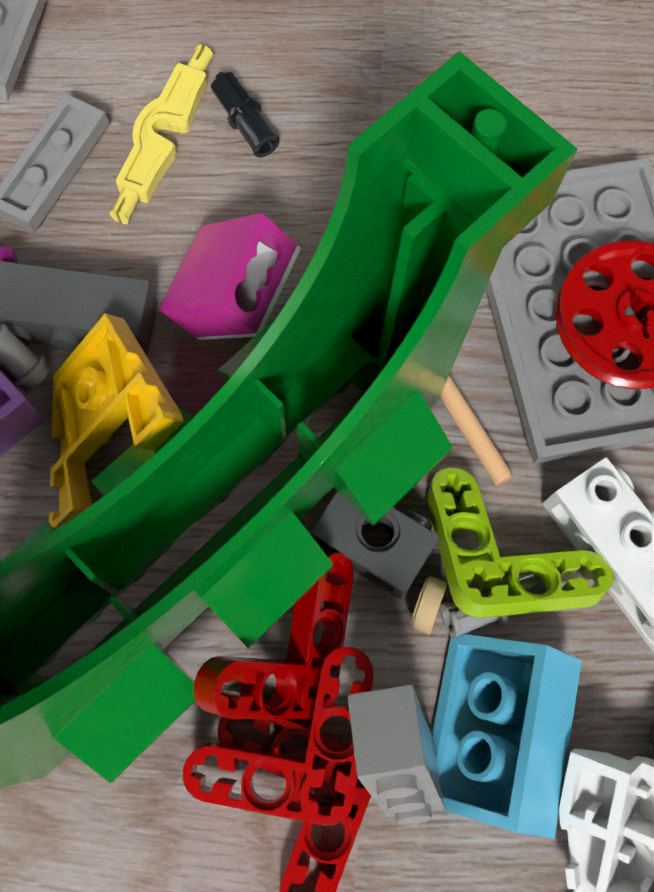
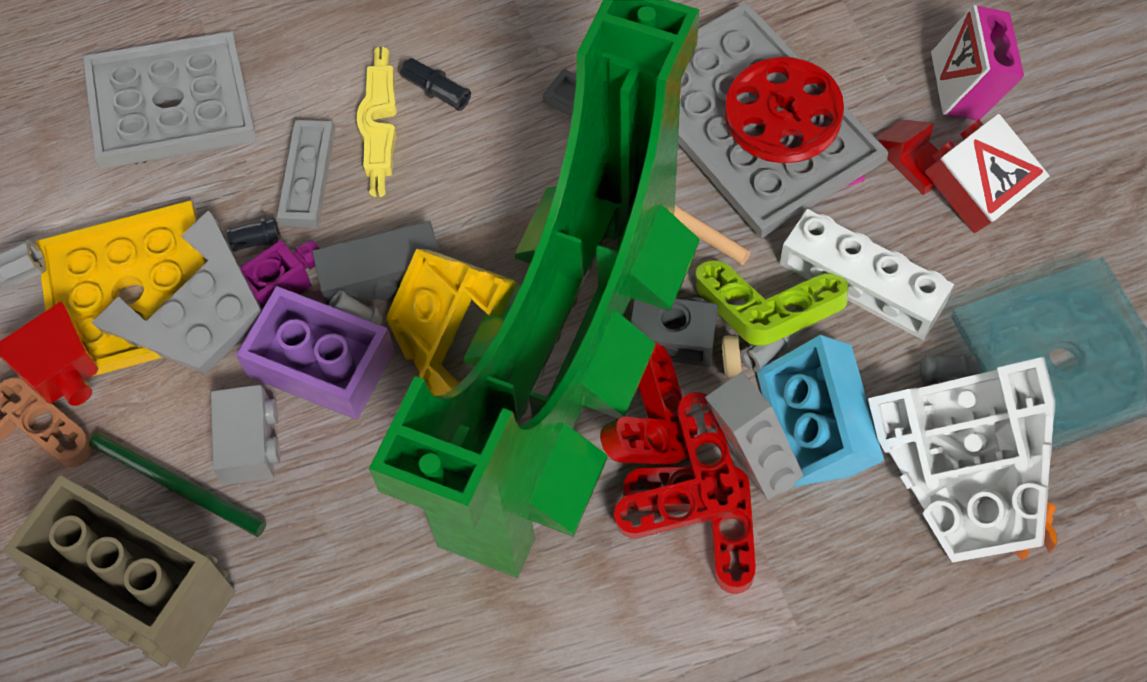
camera: 15 degrees left, 10 degrees down
(231, 278) = (488, 196): dark pink piece -> none

